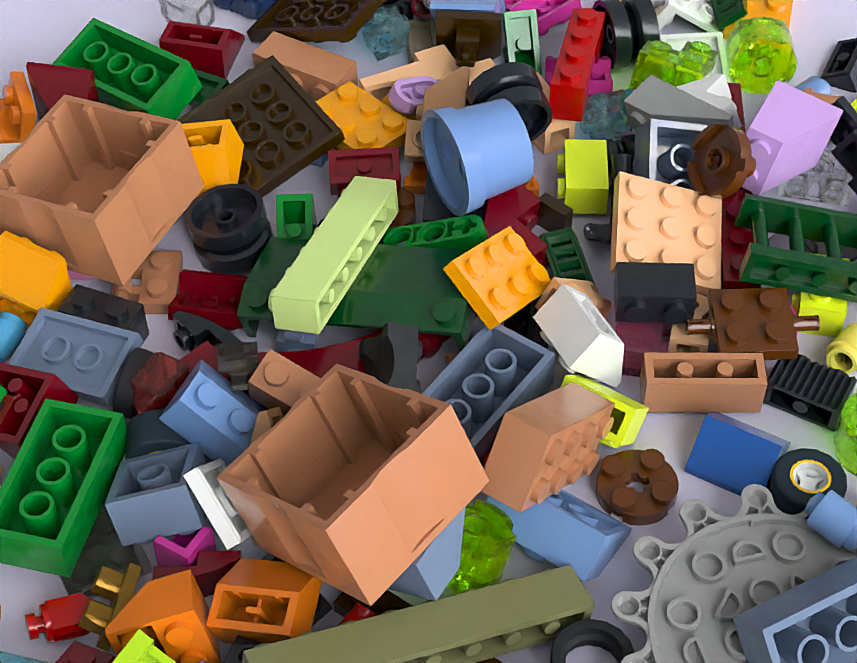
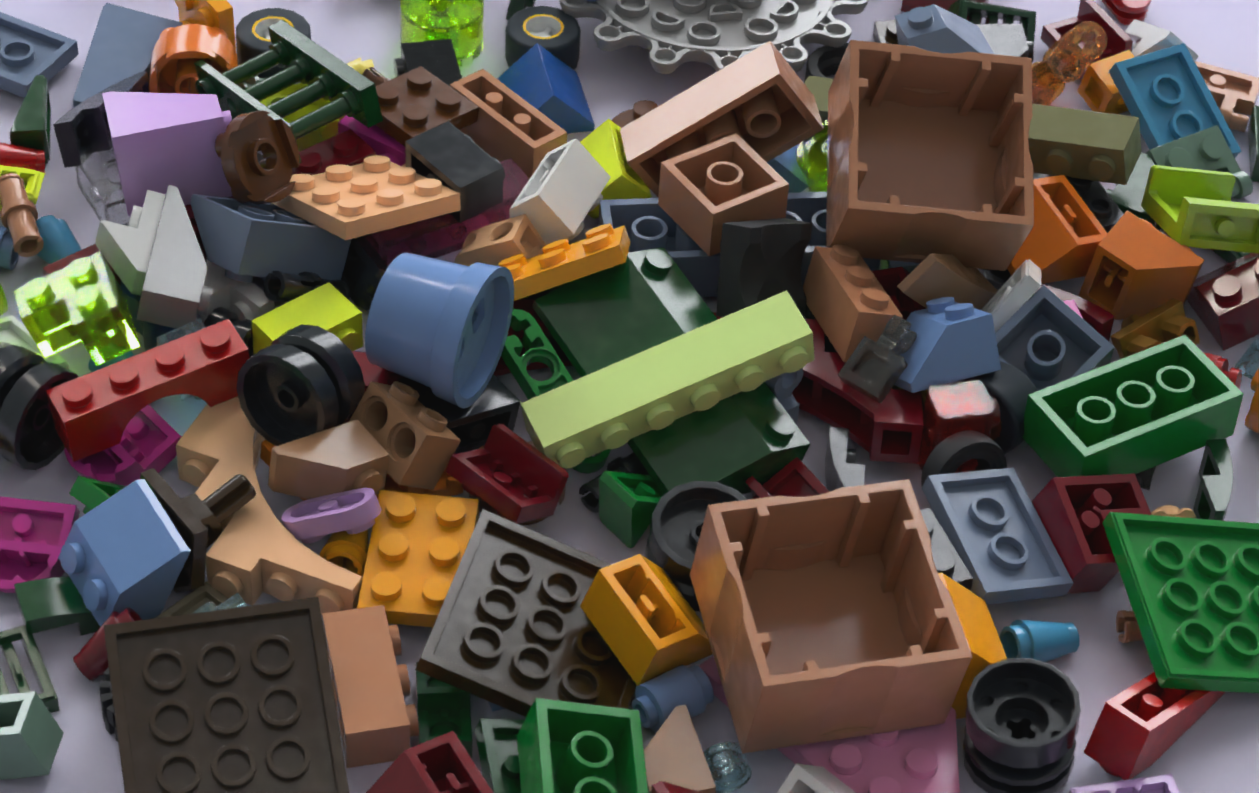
camera: 135 degrees left, 5 degrees down
(471, 376) = (720, 186): none -> nougat brick

